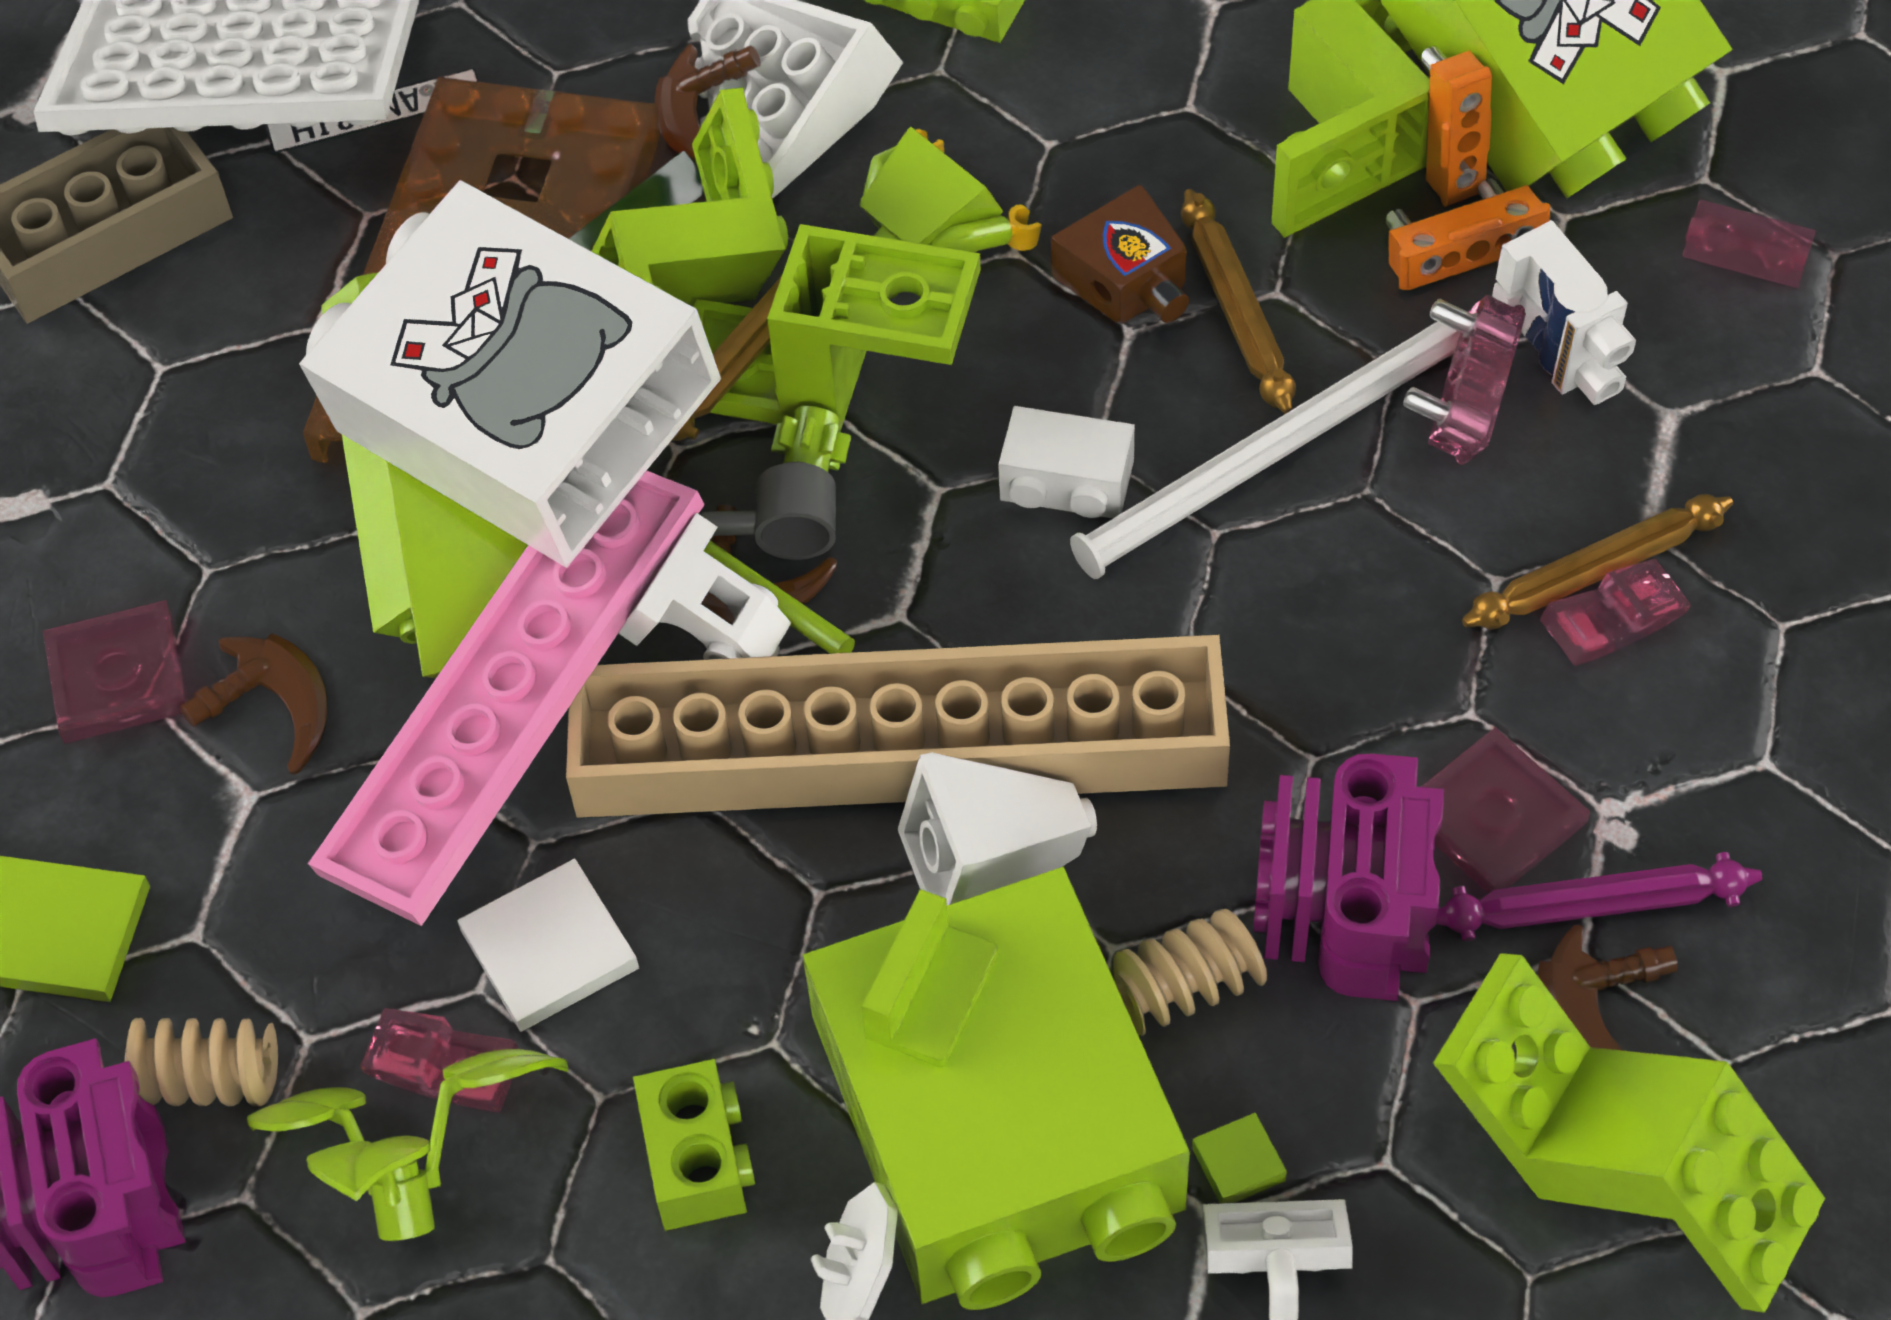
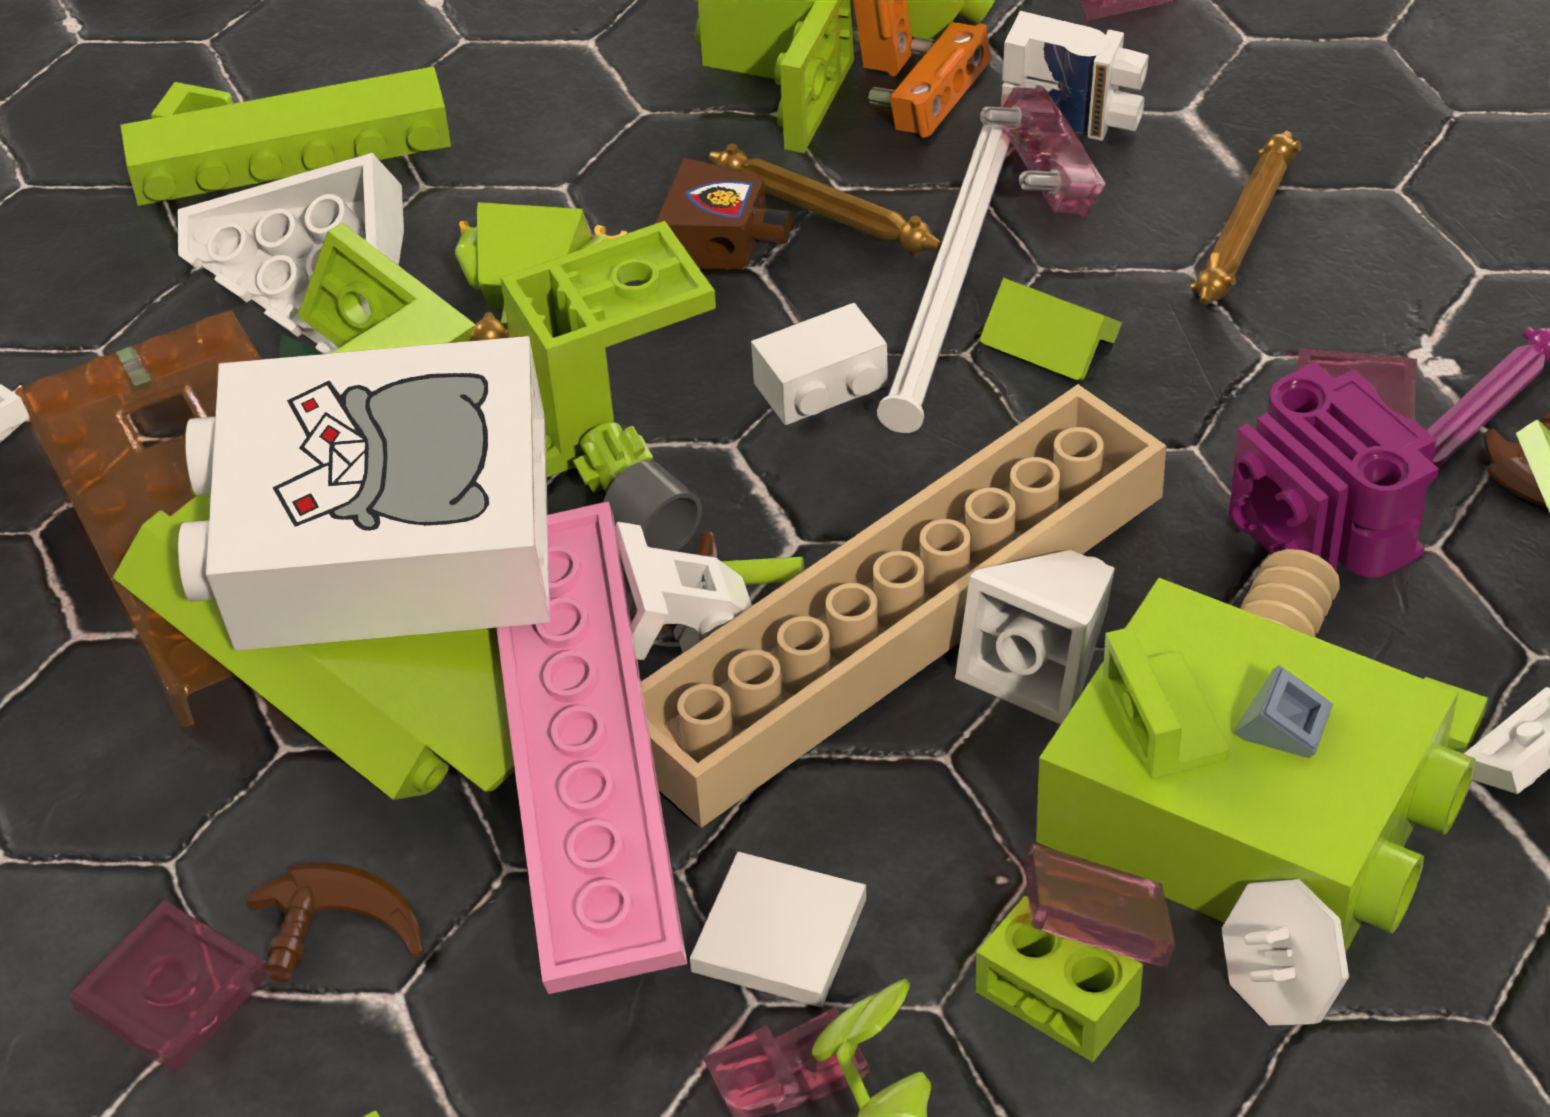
camera: 40 degrees left, 10 degrees down
(679, 91) = (233, 291): reddish brown piece -> none
(763, 1108) = (1098, 905): none -> tile
(1020, 1066) = (1286, 715): none -> sand blue slope
(1299, 555) = (1046, 329): none -> lime panel
(1621, 611) = (1291, 239): clear pink slope -> none

